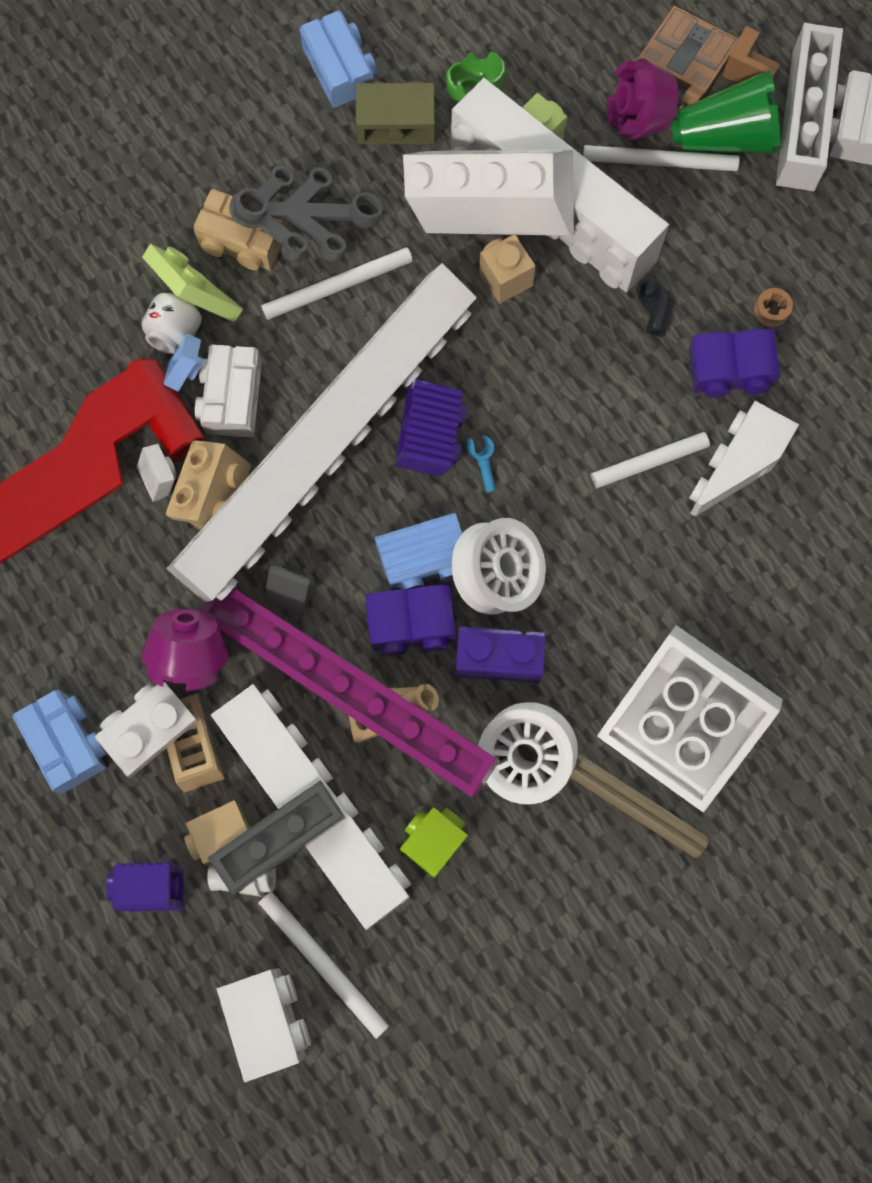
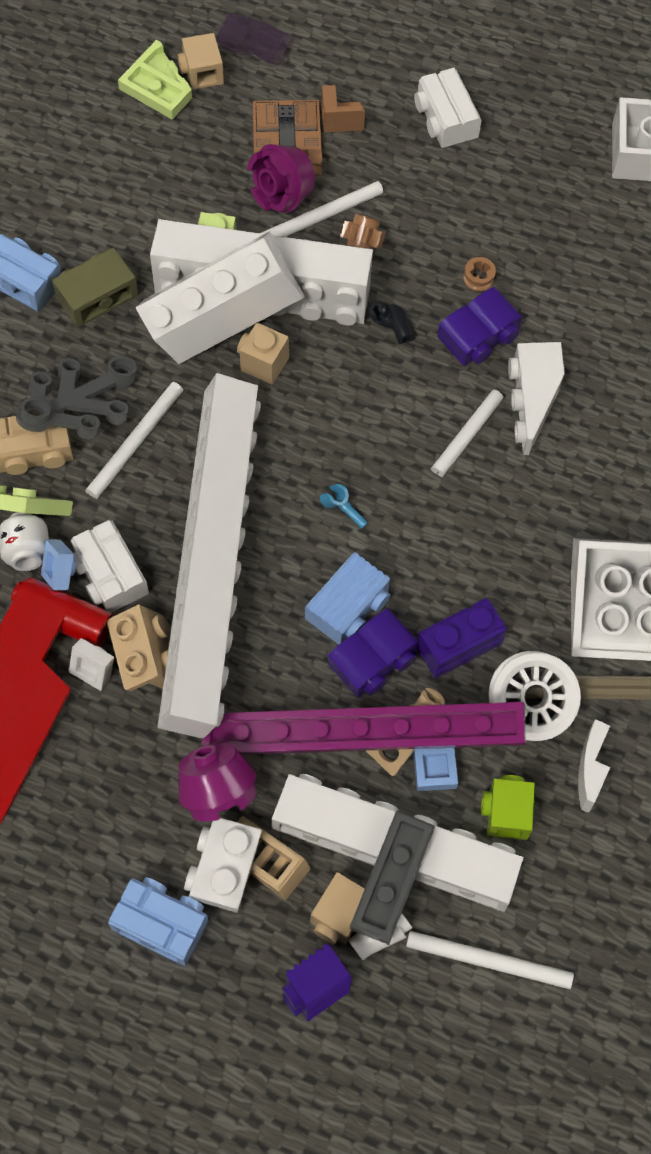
camera: 35 degrees left, 10 degrees down
(264, 1023) = (482, 1025): white brick -> none
(288, 590) = (261, 690): dark grey slope -> none
(391, 764) = (435, 769): none -> light blue plate
(430, 428) = (288, 503): dark purple brick -> none
(472, 71) = (139, 225): bright green hair -> none
(498, 566) = (415, 571): white wheel -> none
(531, 860) = (592, 773): none -> white slope
(683, 202) = (363, 232): none -> medium nougat gear
(732, 119) = (359, 156): green cone -> none
(809, 107) = (407, 119): white brick -> none

